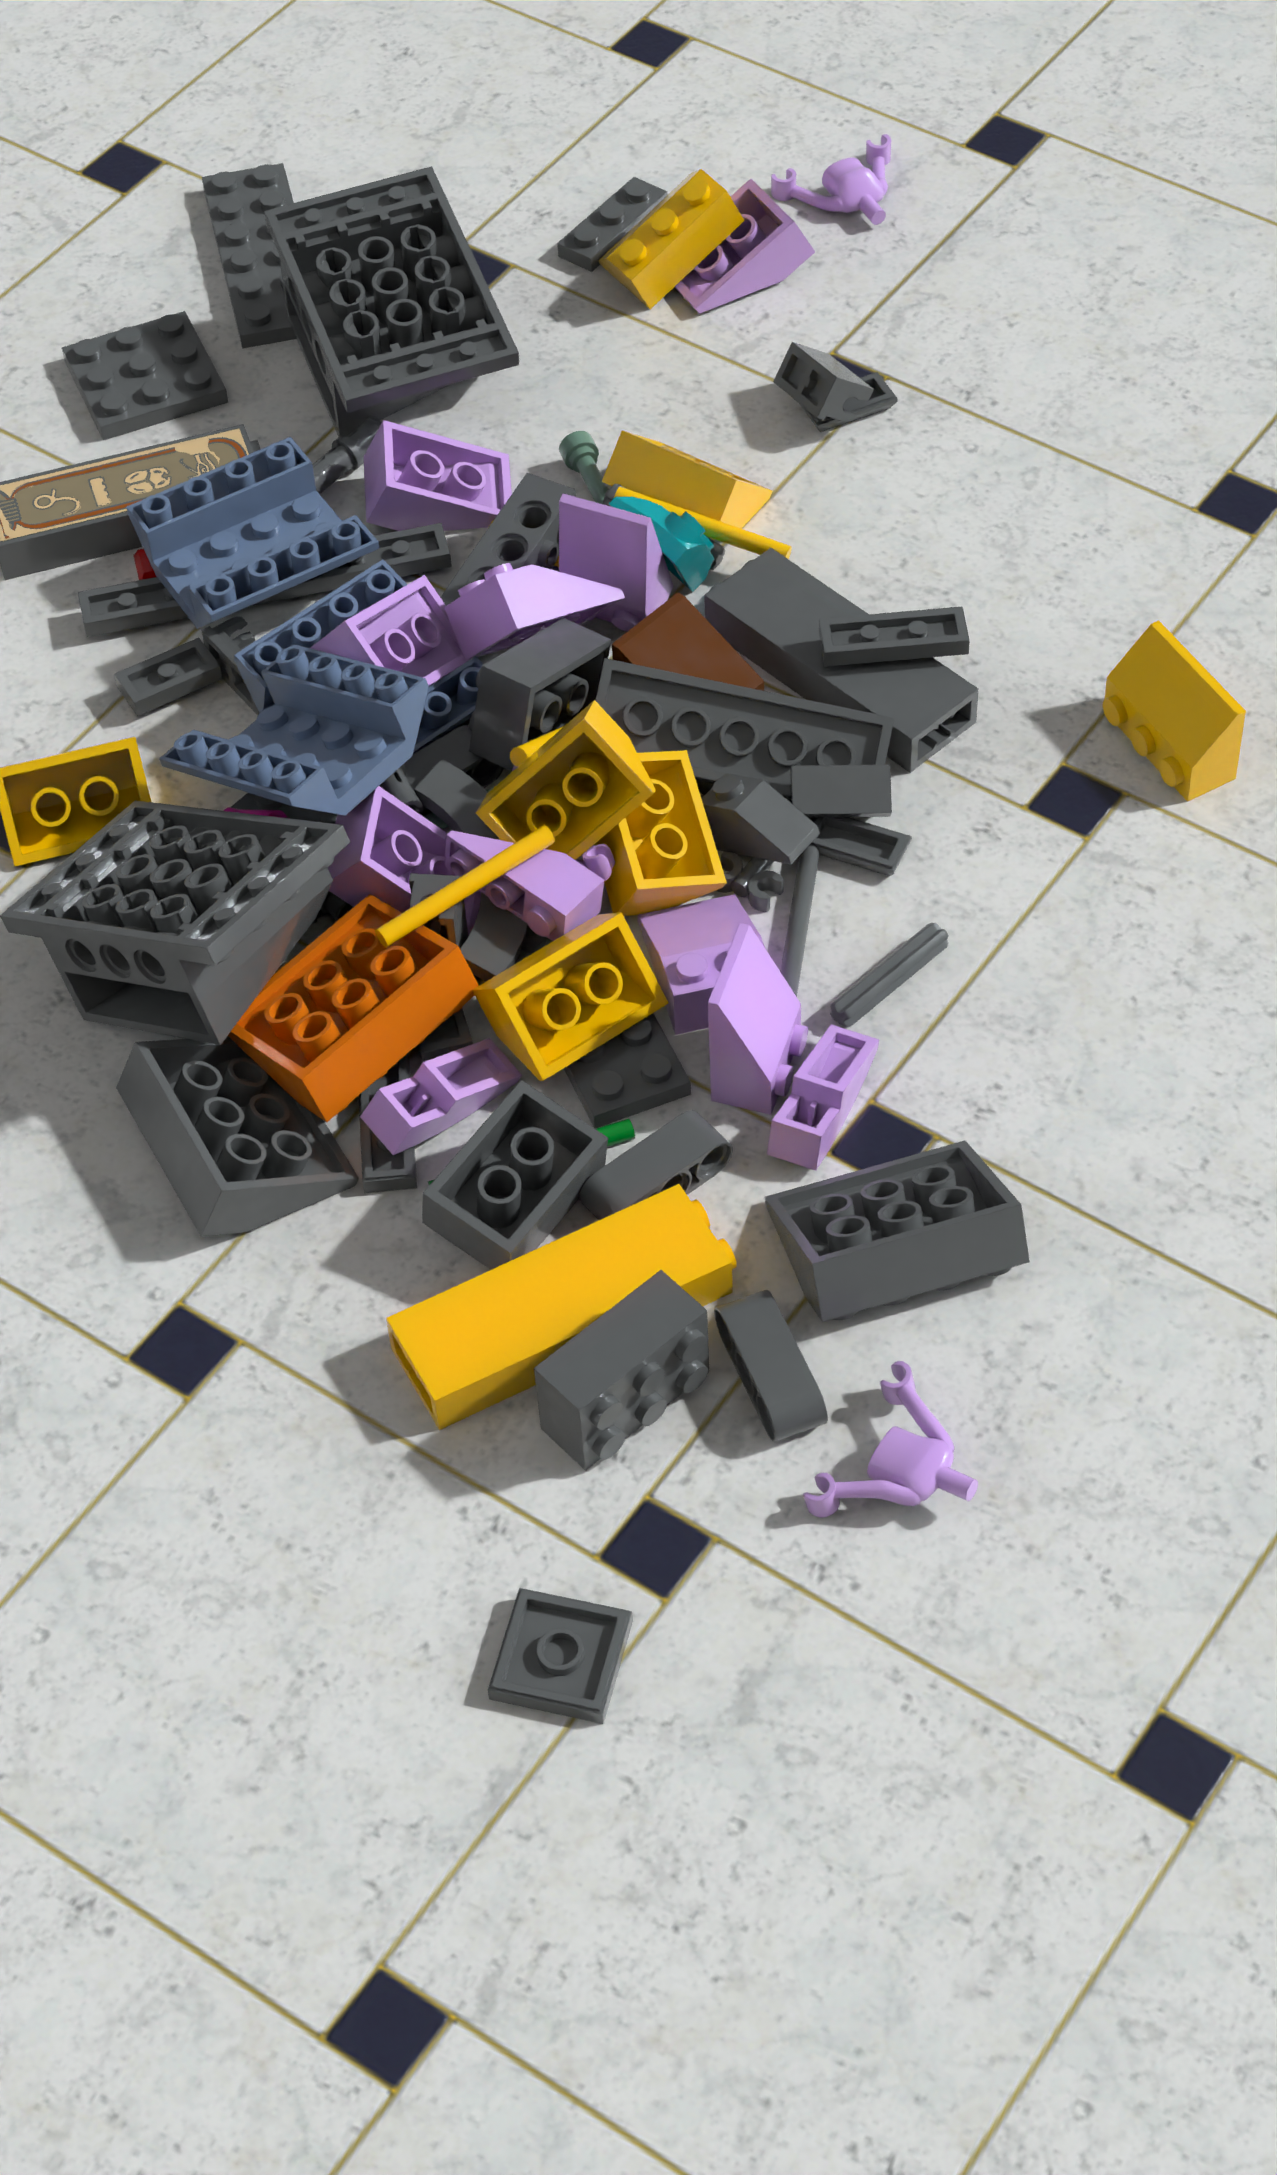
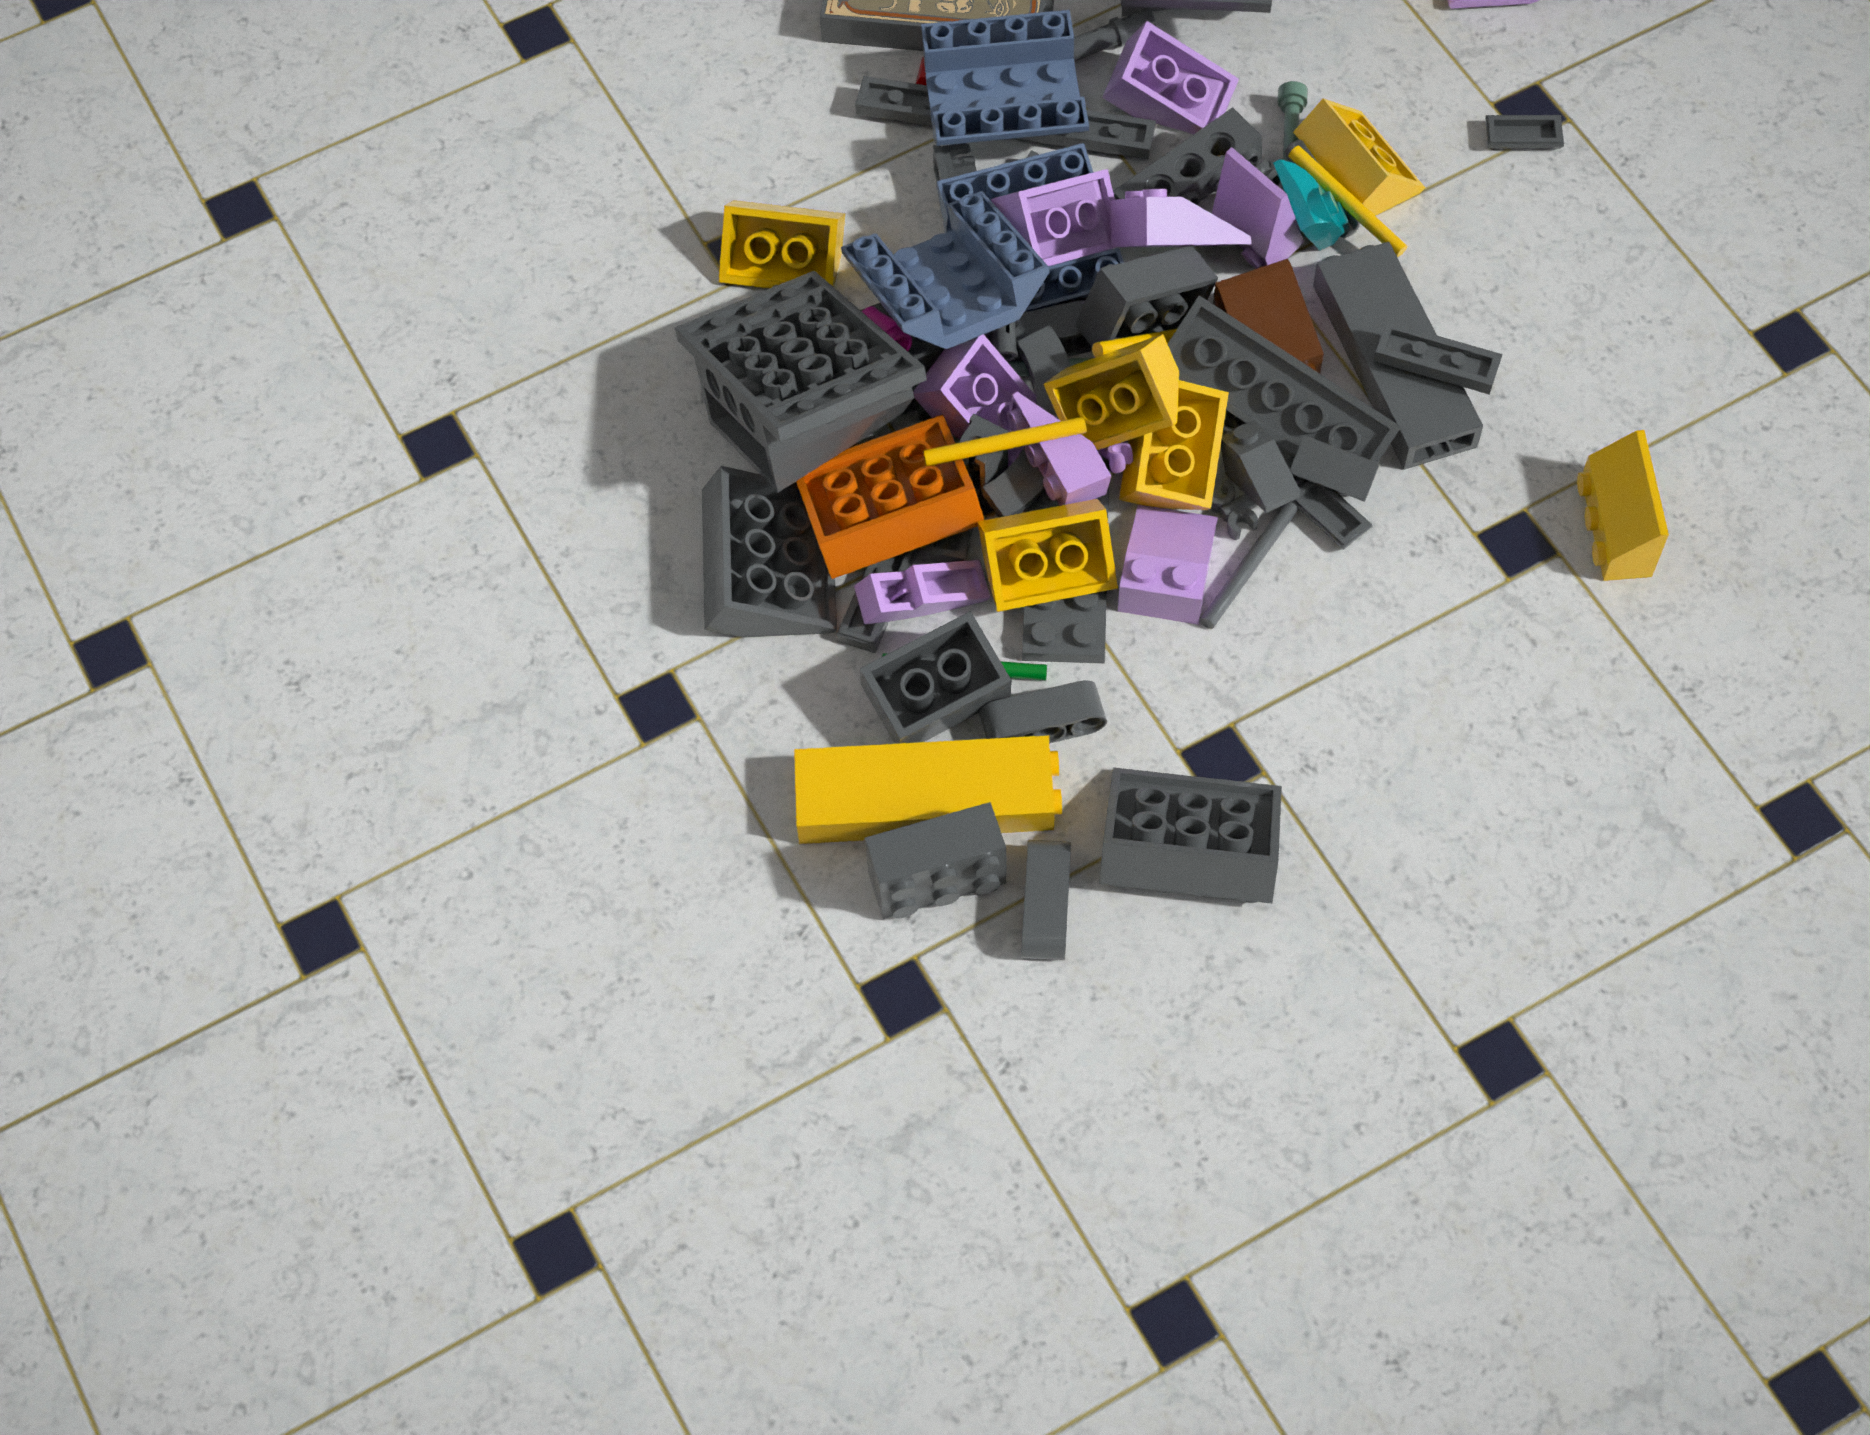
camera: 25 degrees right, 10 degrees up
(168, 676) = (896, 171): dark grey plate -> none
(560, 1655) = (796, 1047): dark grey tile -> none
(752, 1028) = (1162, 635): lavender slope -> none
(820, 382) = (1507, 110): dark grey hinge -> none
(821, 1097) = (1193, 707): lavender slope -> none
(889, 975) = (1296, 630): dark grey axle -> none
(904, 1464) = (1100, 1013): lavender piece -> none

